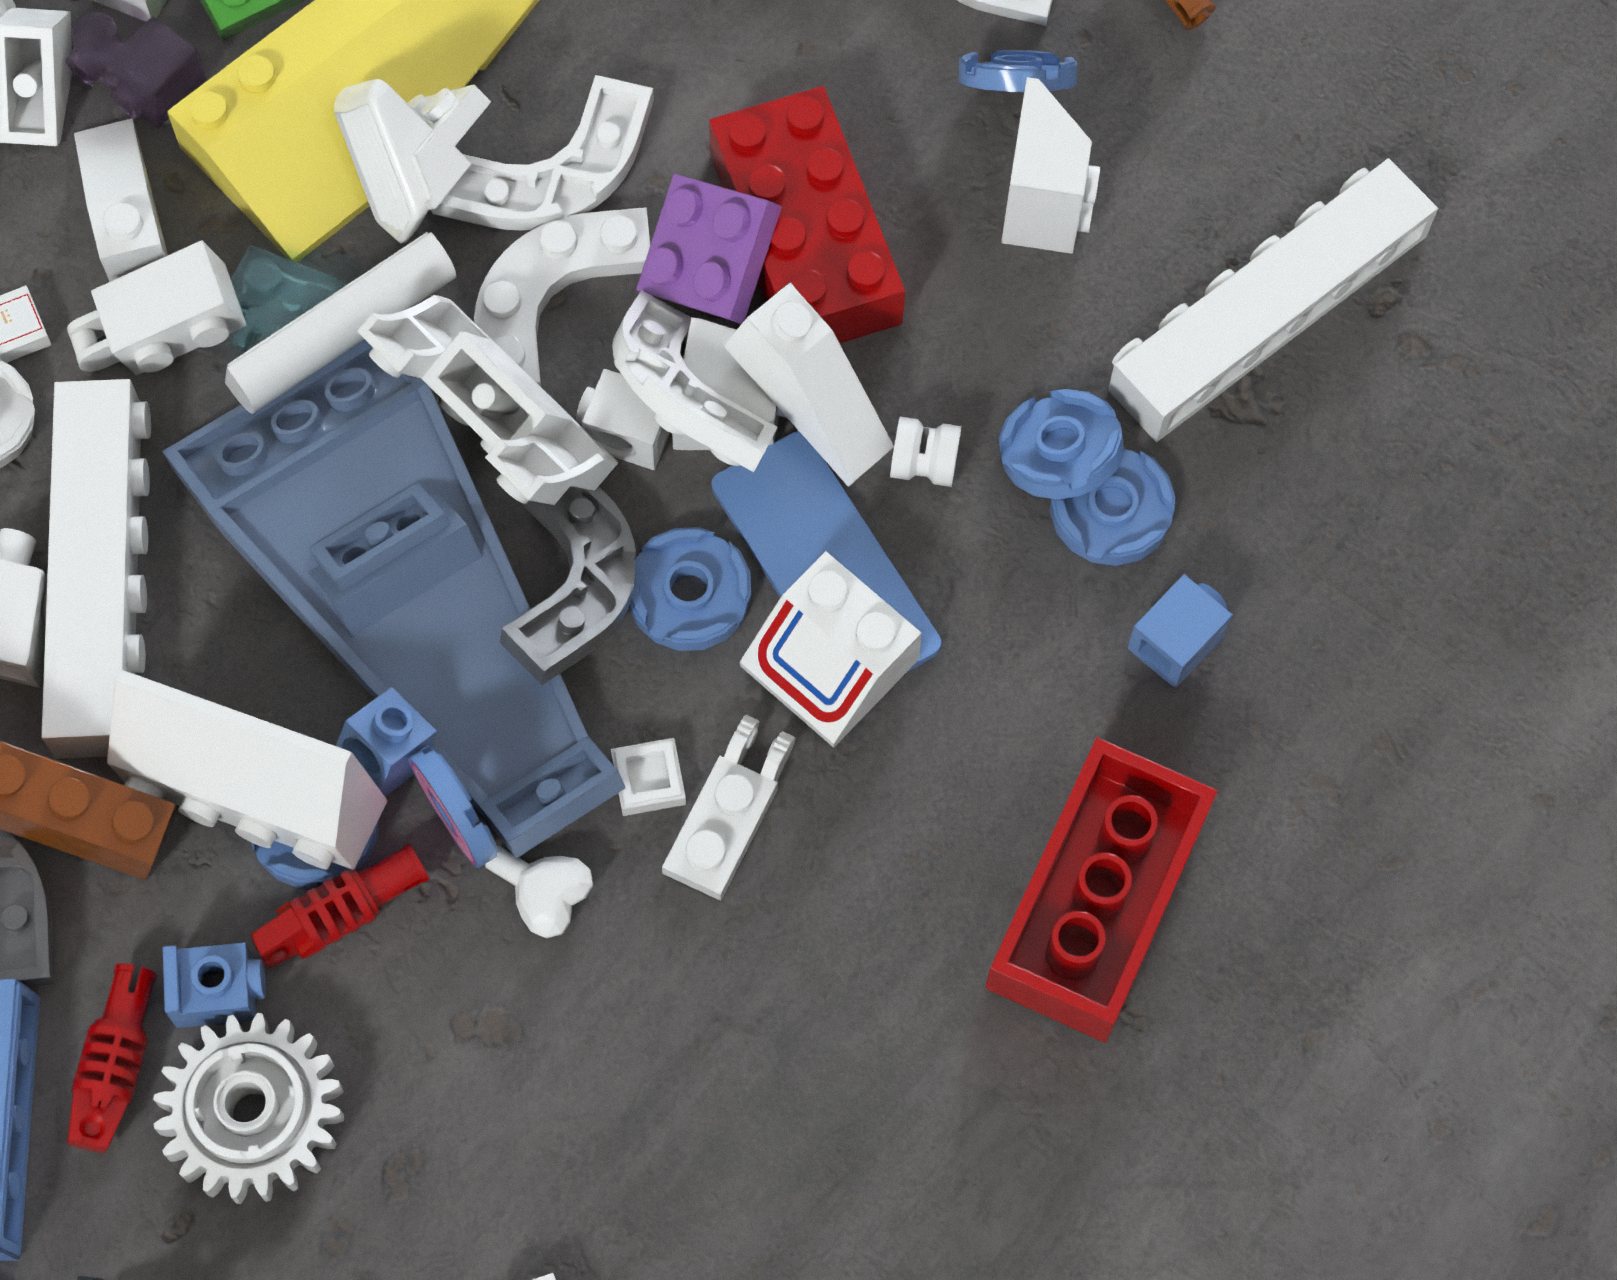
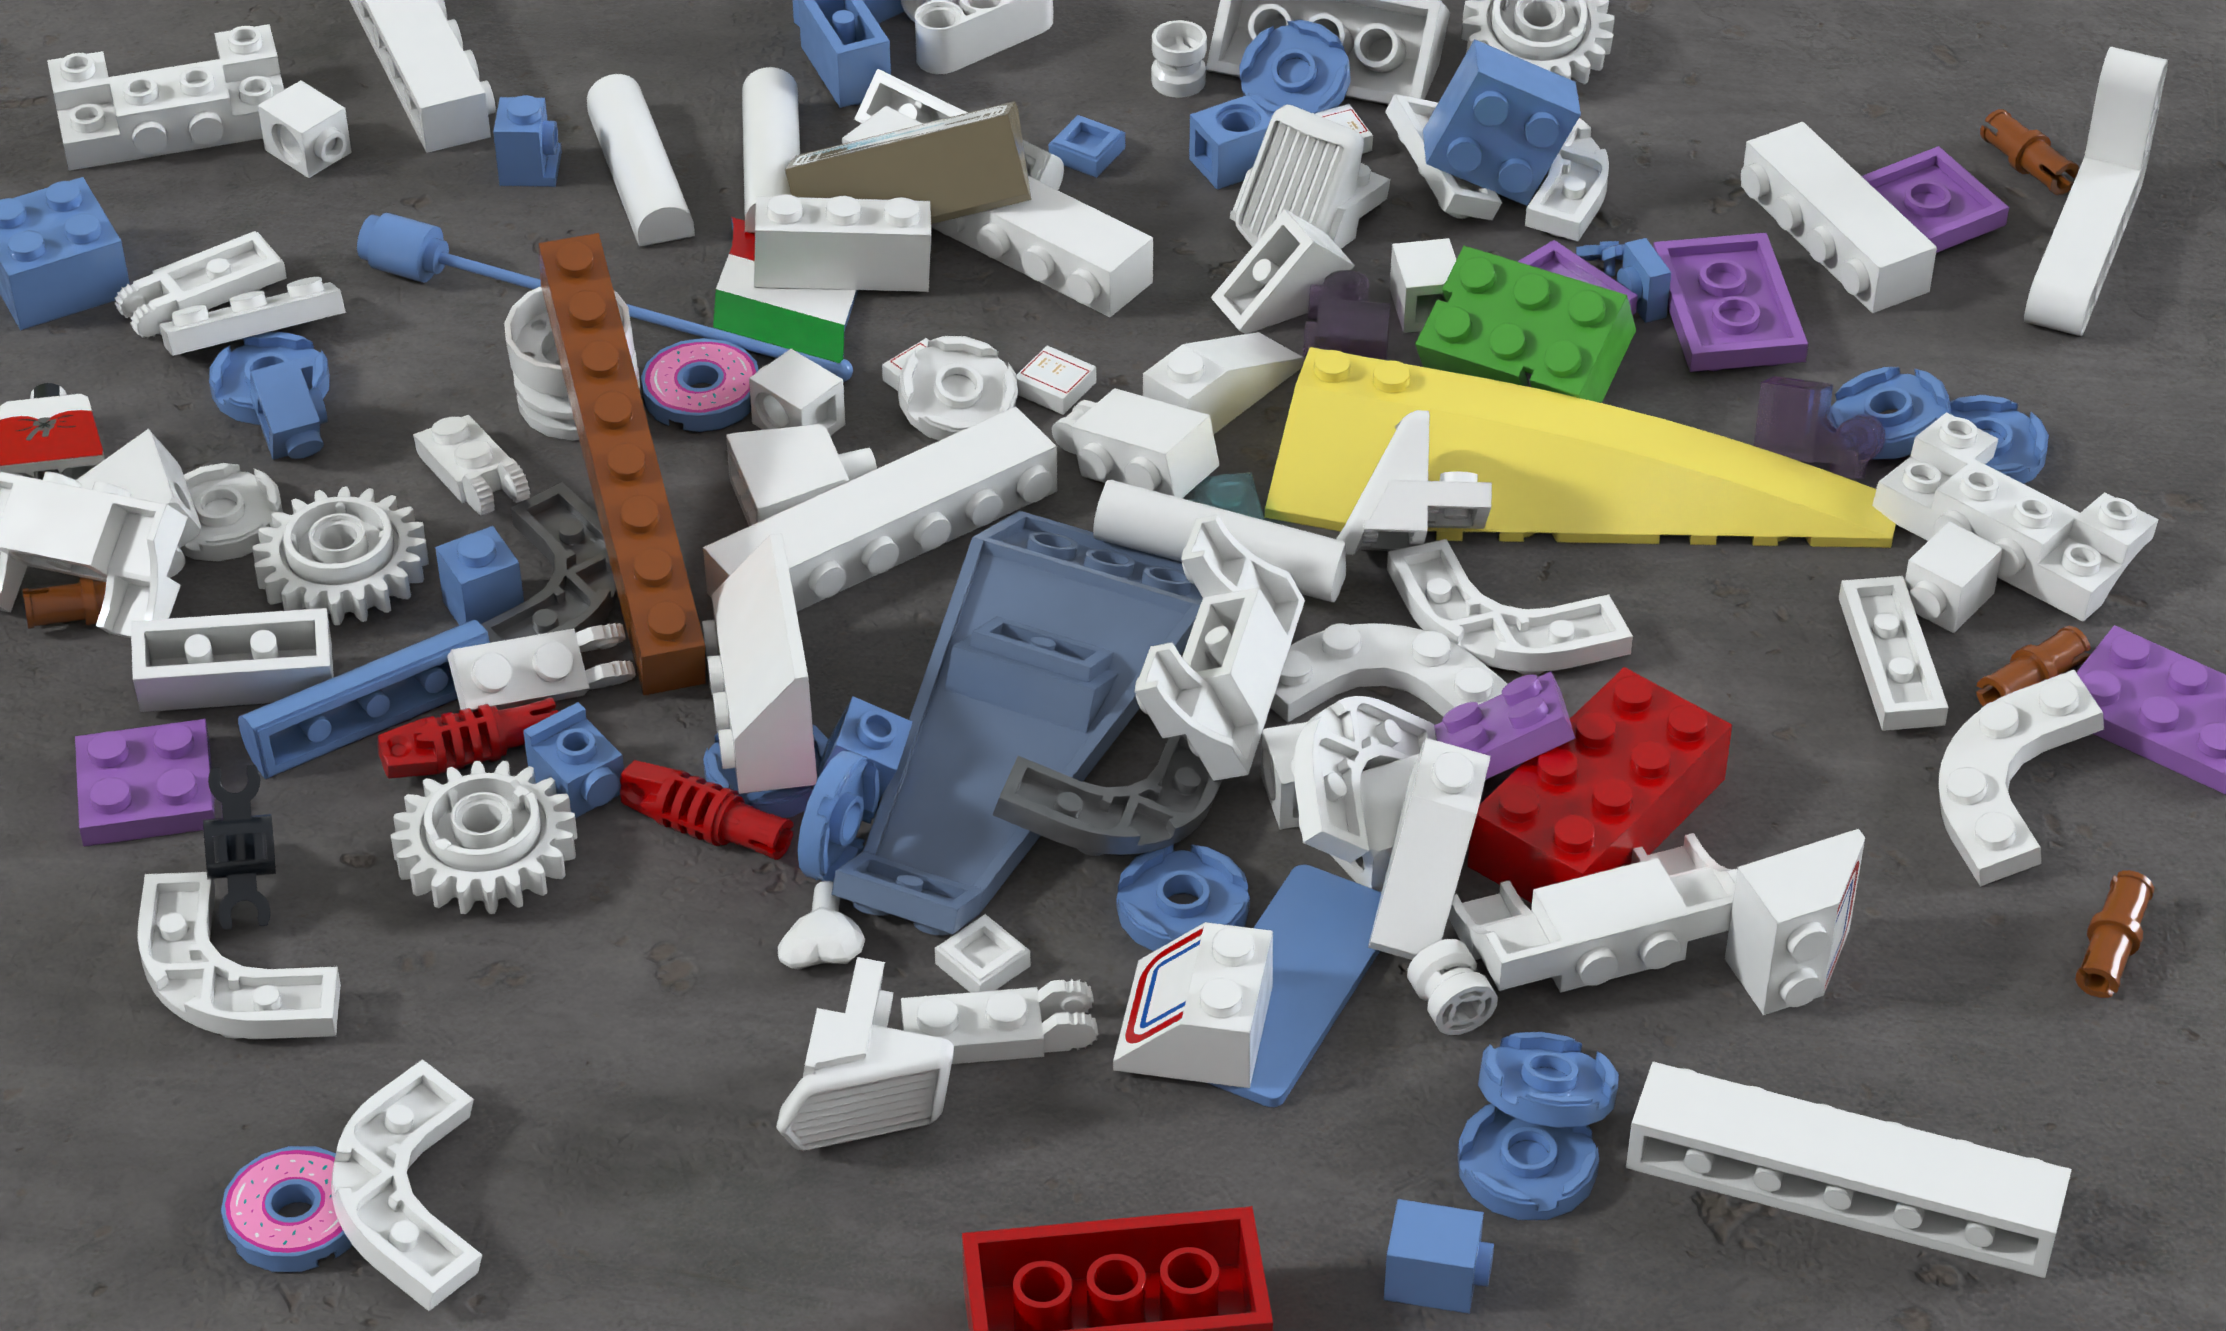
camera: 60 degrees right, 25 degrees down
(75, 959) = (536, 668): none -> white hinge
(744, 953) = (863, 1075): none -> white piece
(953, 277) = (1601, 921): none -> white bracket
(1010, 68) = (1891, 860): medium blue tile -> none

